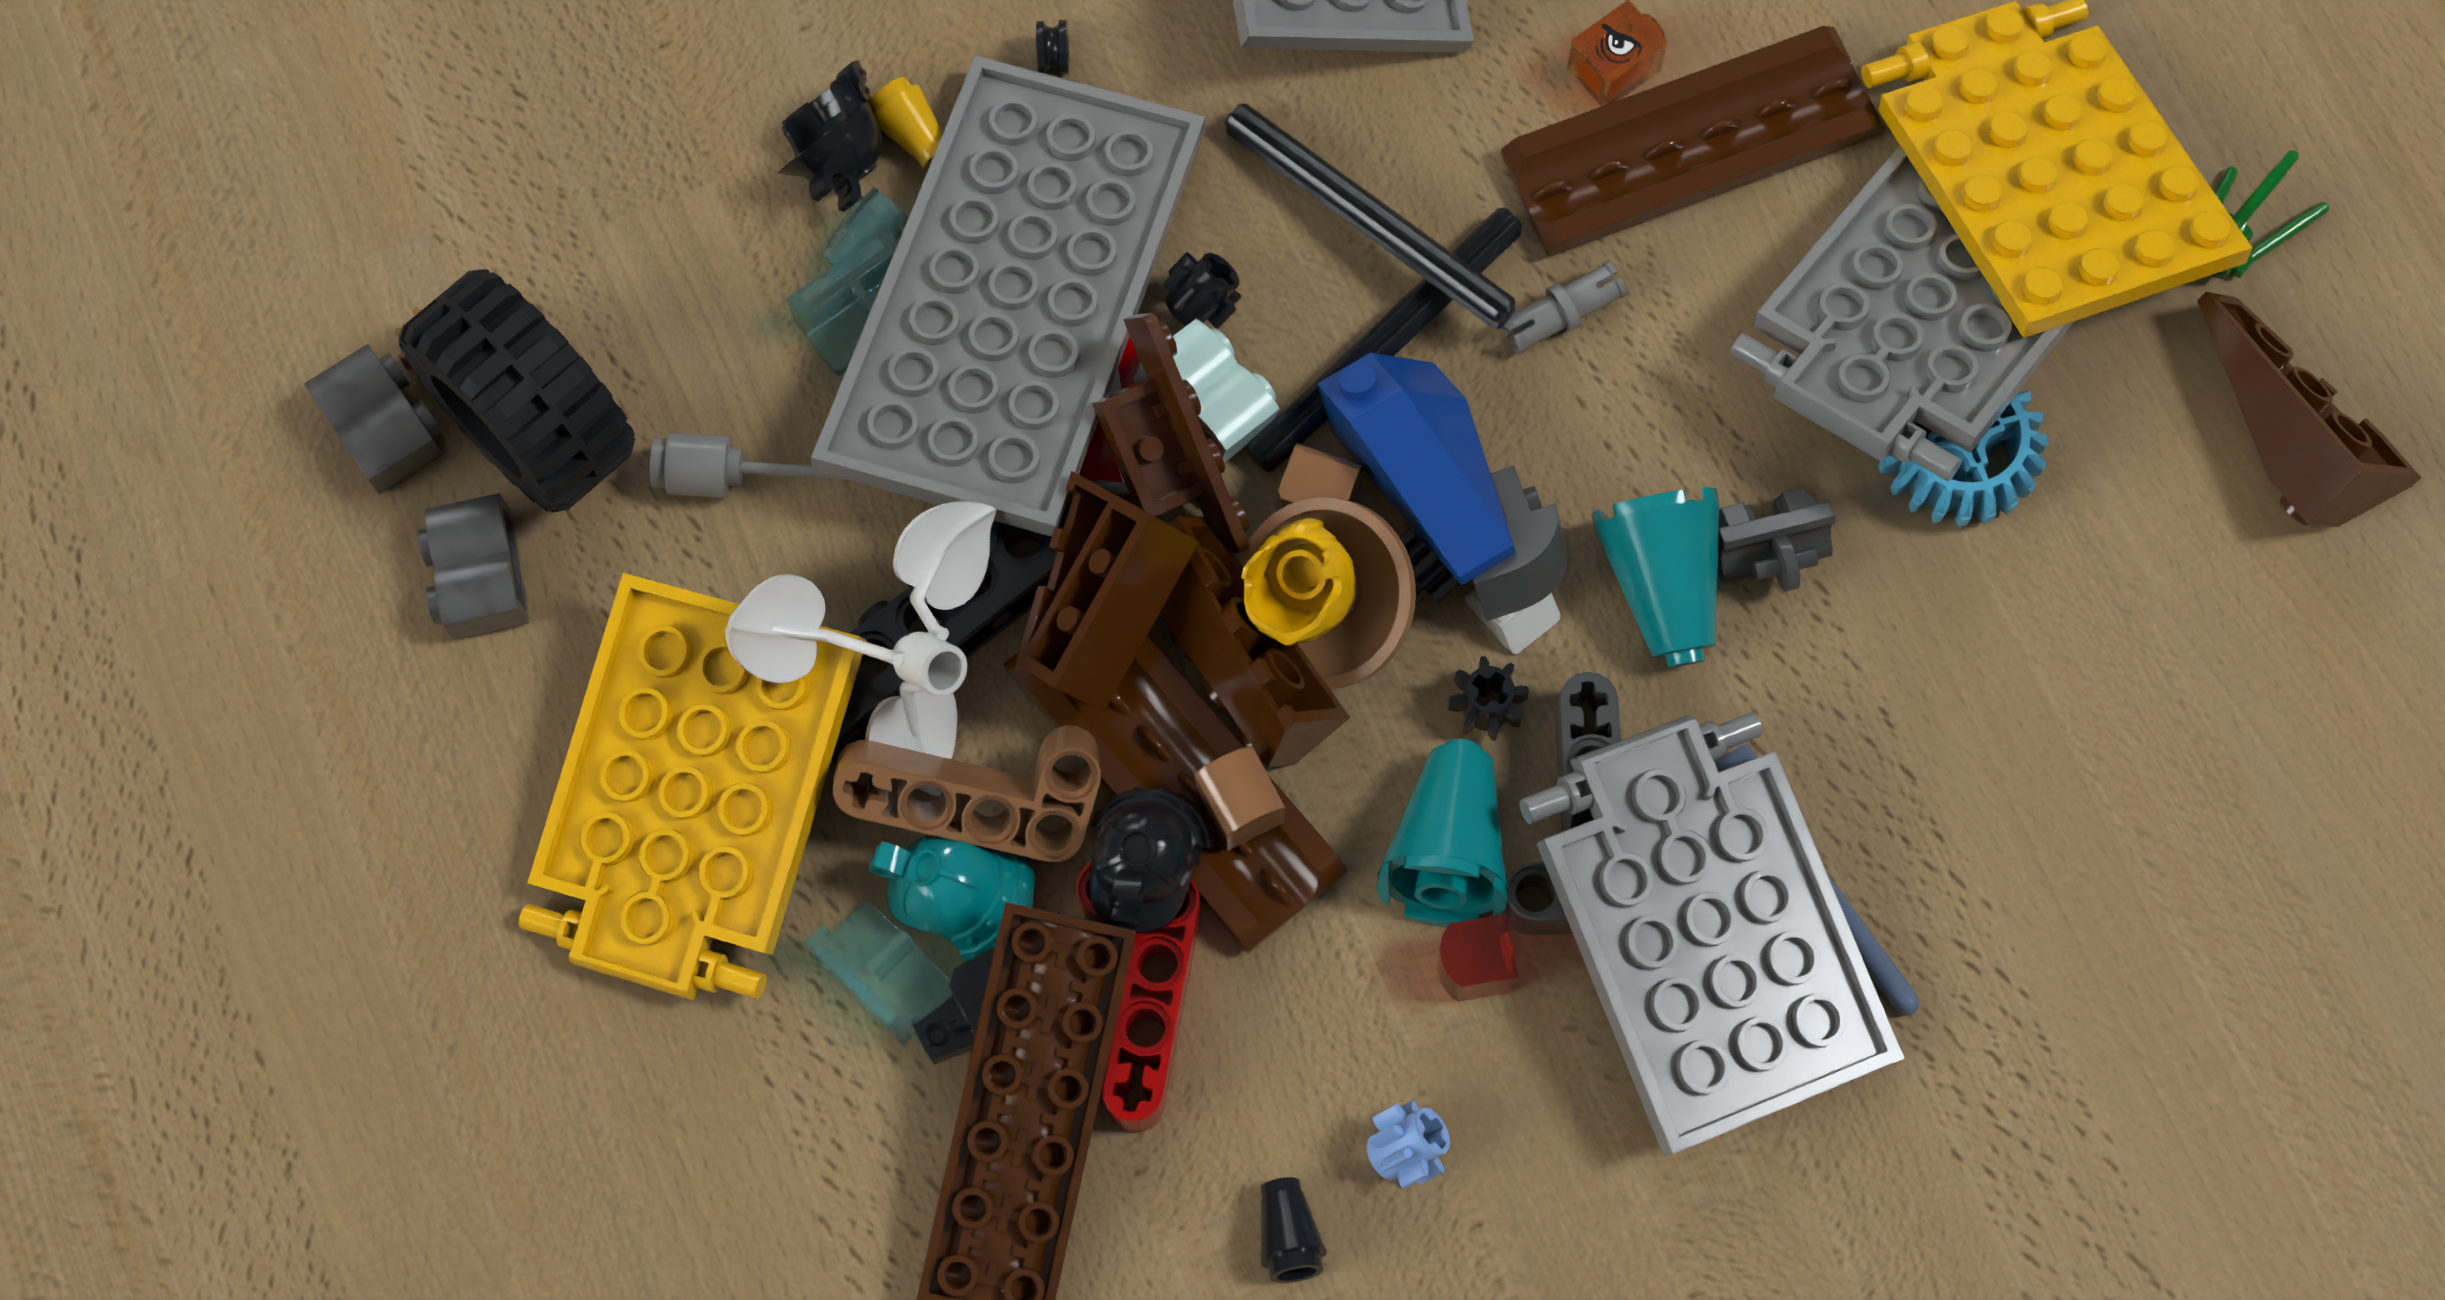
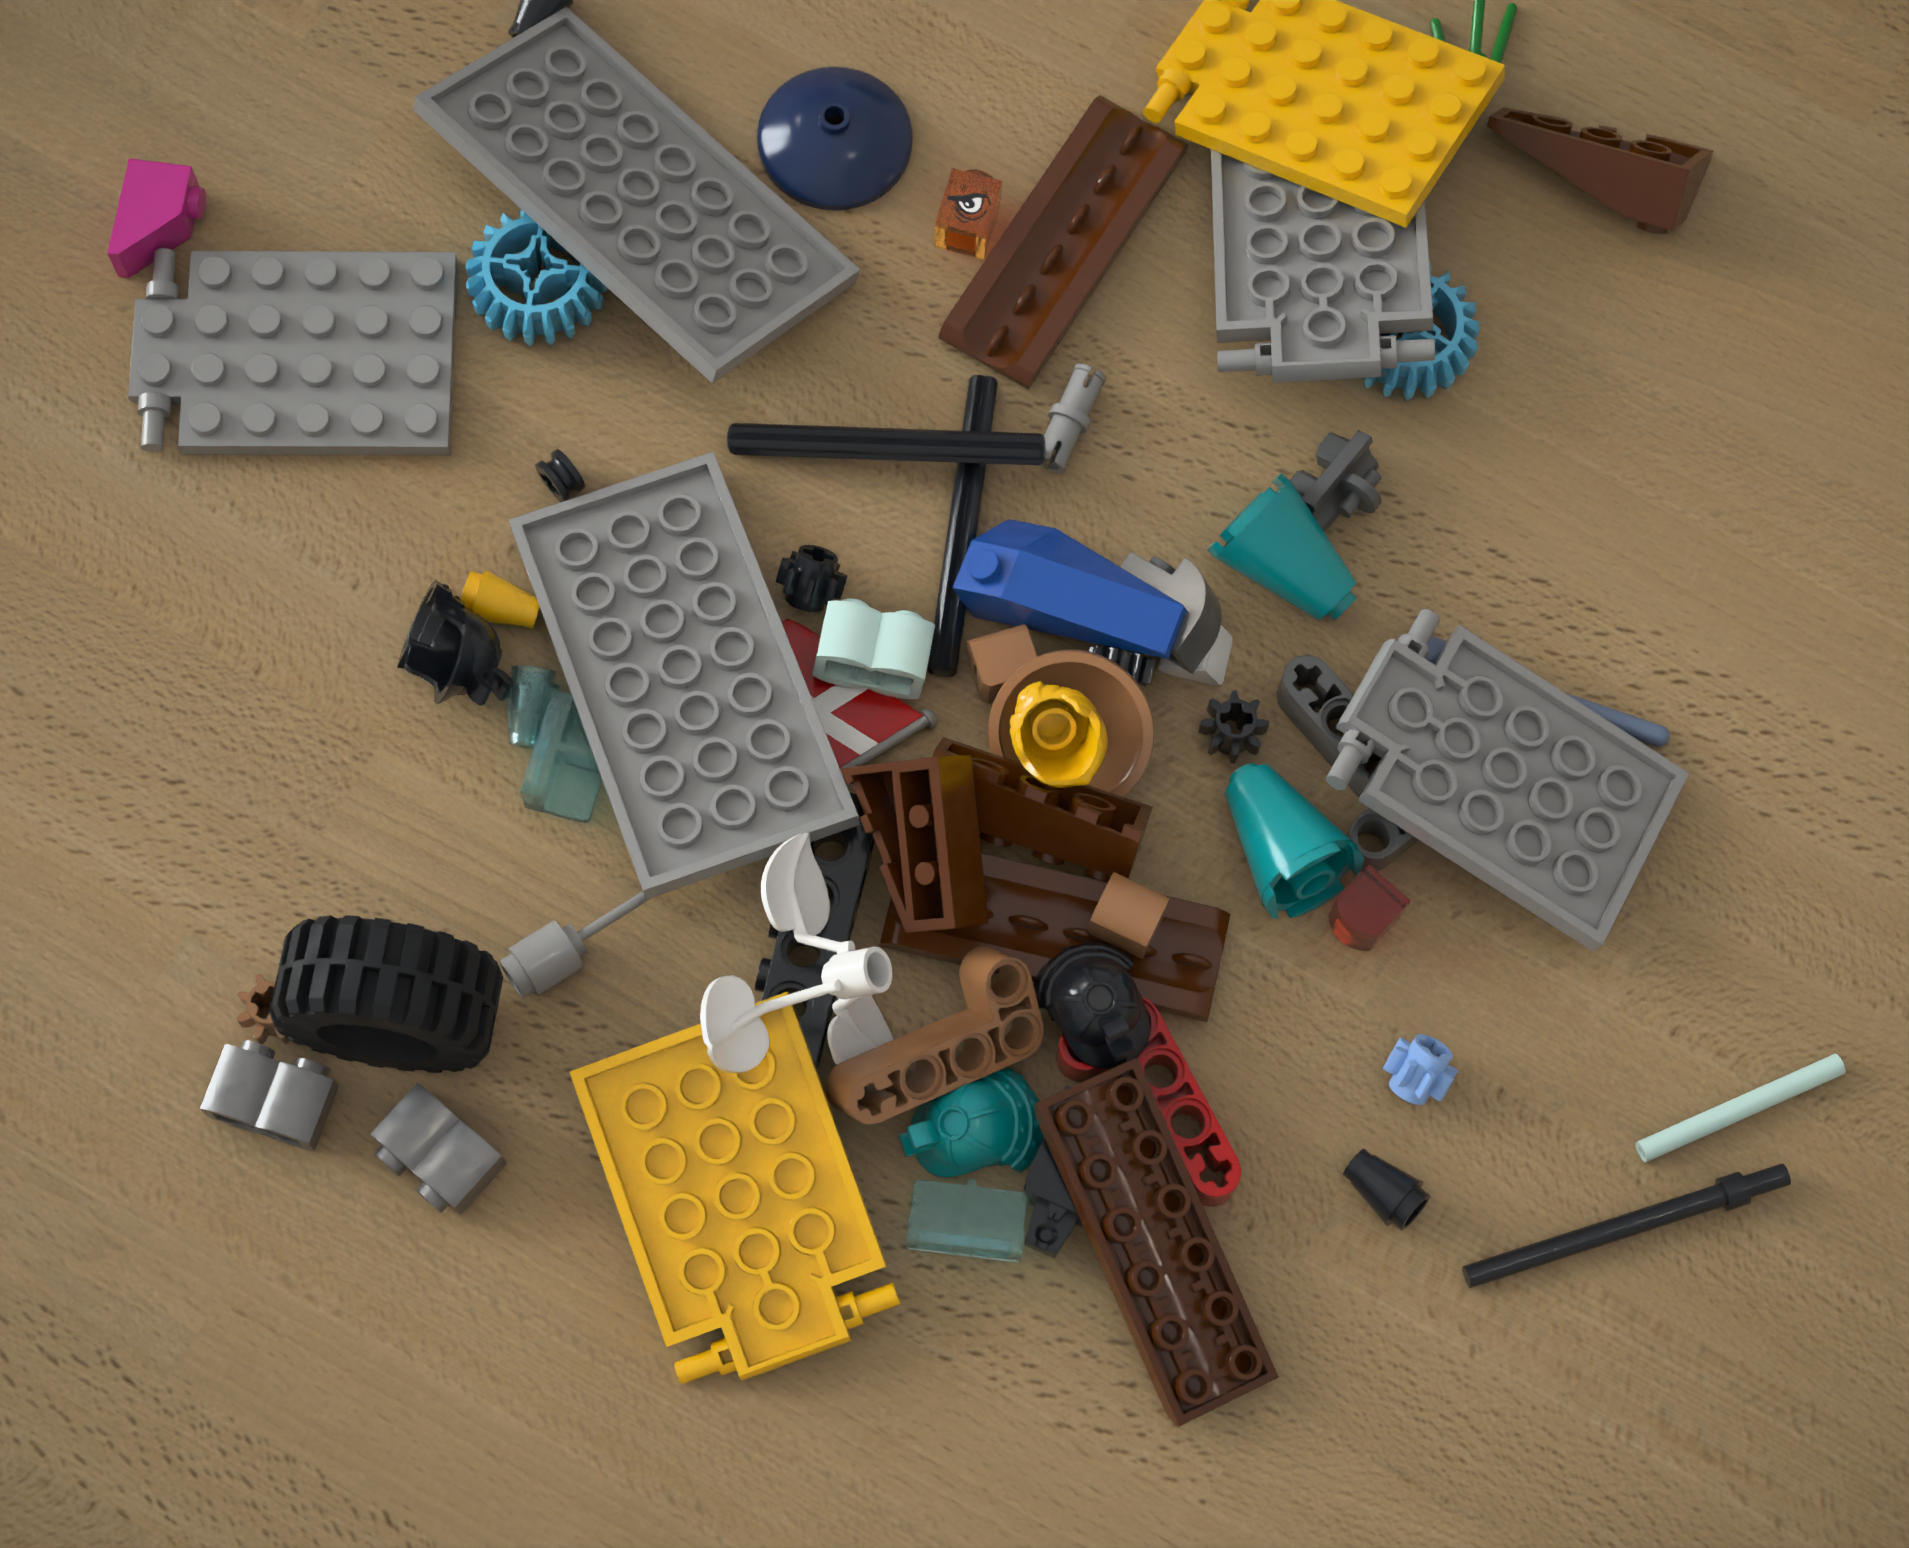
camera: 45 degrees left, 0 degrees up
(1161, 441) = (878, 700): reddish brown bracket -> none

